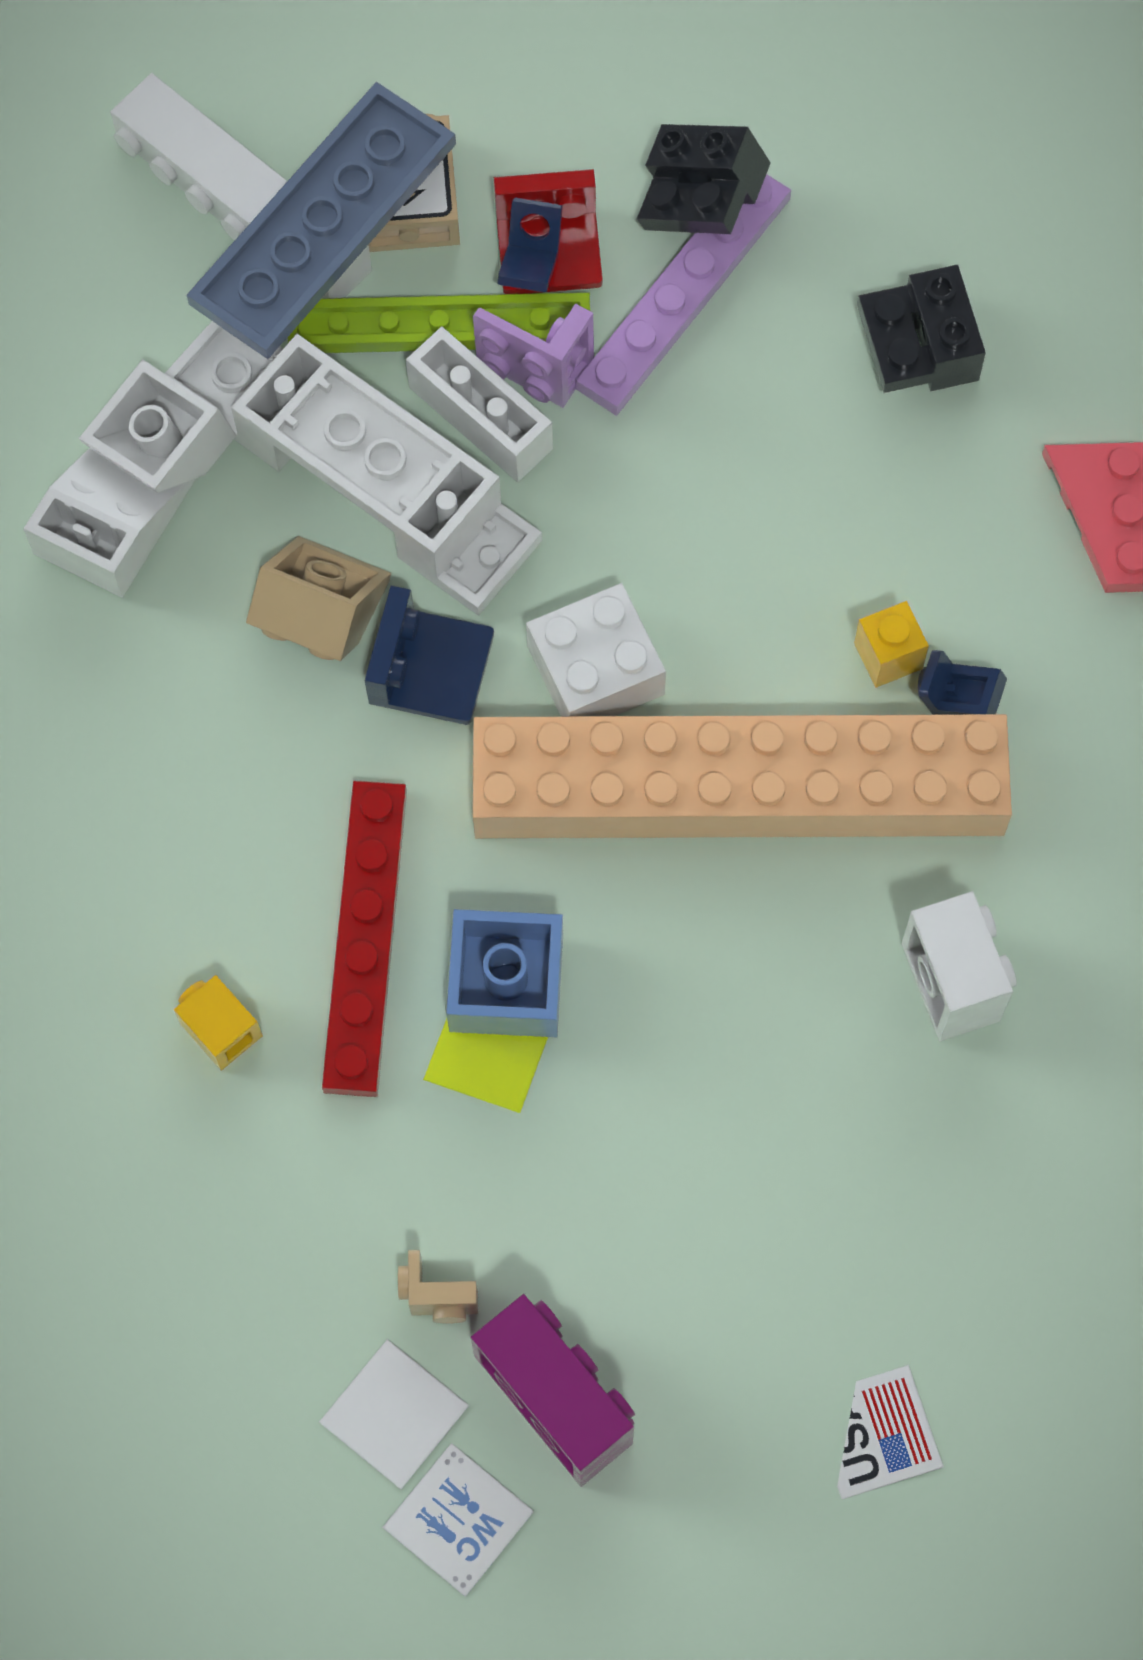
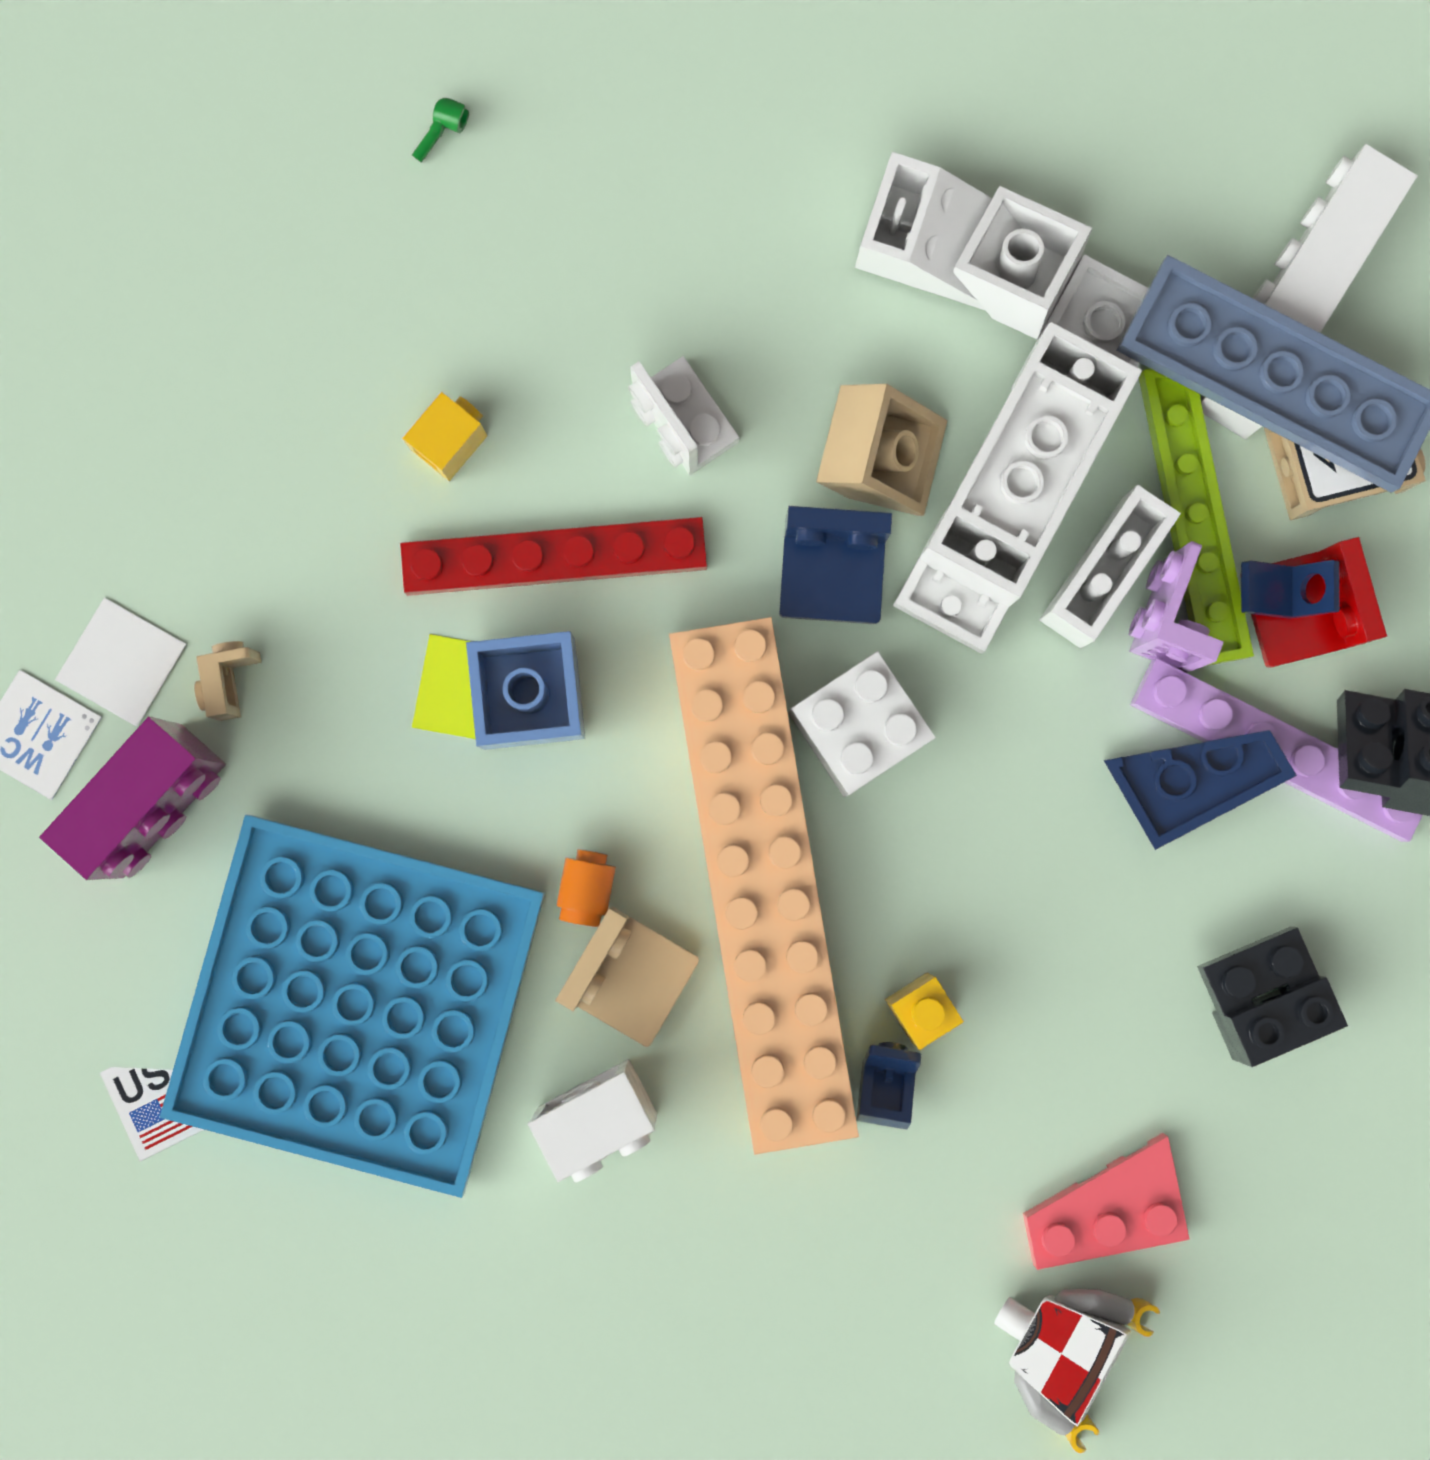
camera: 75 degrees right, 15 degrees up
(244, 784) = (684, 413): none -> white bracket
(704, 361) = (1195, 783): none -> dark blue wing
(719, 951) = (585, 888): none -> orange brick
(805, 1208) = (353, 1005): none -> dark azure plate
(816, 924) = (628, 977): none -> tan bracket

